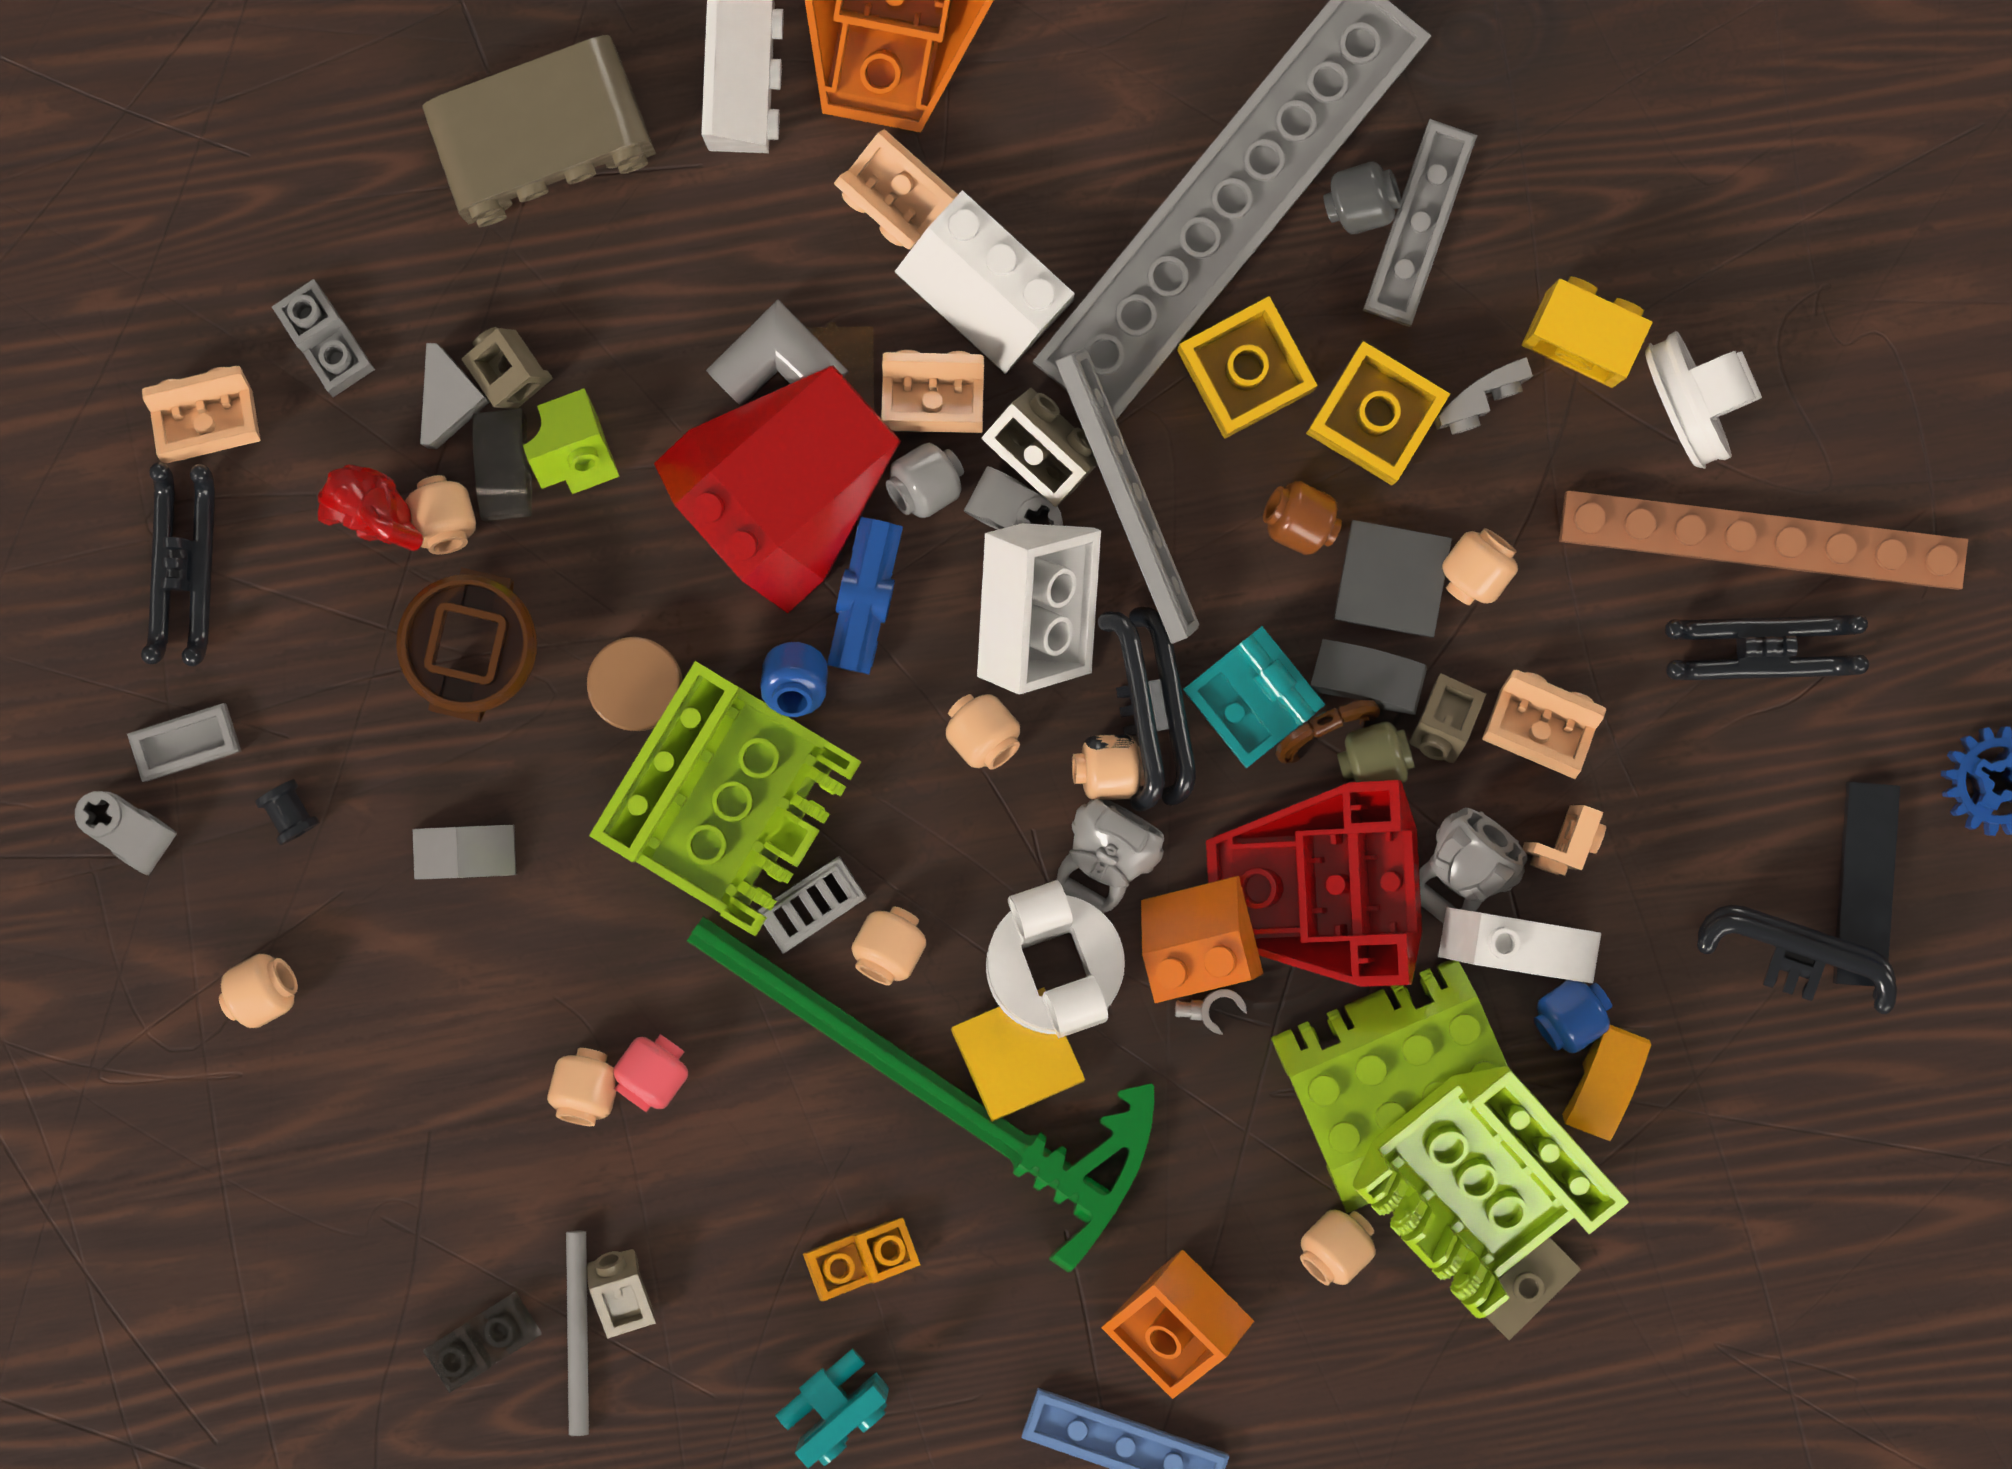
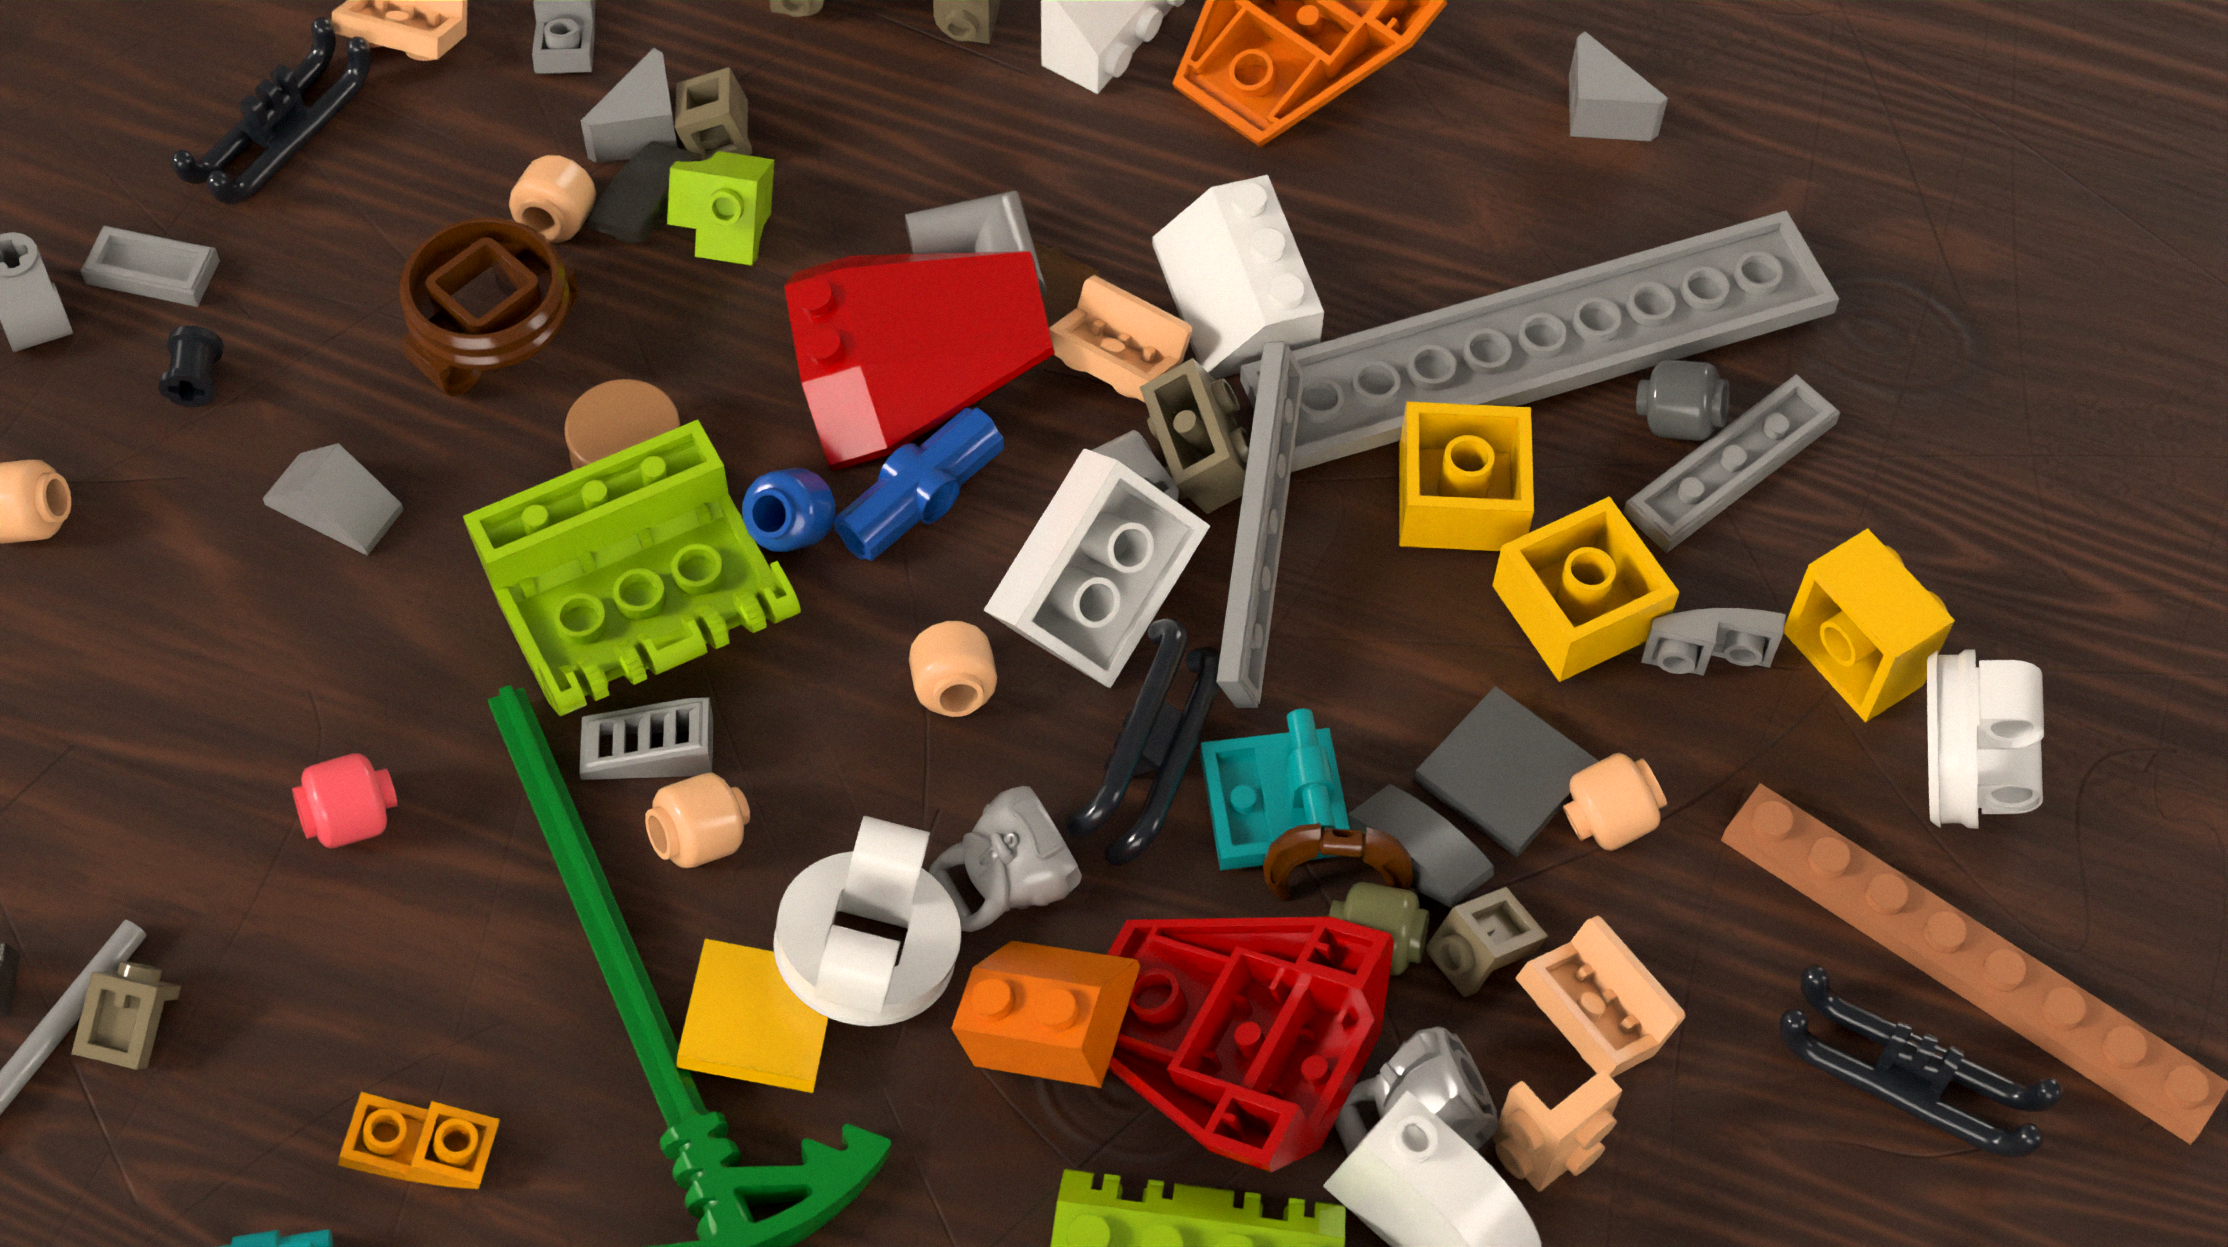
camera: 30 degrees right, 30 degrees down
(369, 505) = (486, 141): red piece -> none
(582, 1087) = (258, 776): light nougat head -> none
(895, 190) = (1195, 155): light nougat bracket -> none
(925, 480) = (1055, 412): light grey head -> none
(1109, 767) = (1064, 770): light nougat head -> none
(1200, 1008) = (1004, 1094): light grey piece -> none
(1302, 517) = (1439, 650): dark orange head -> none

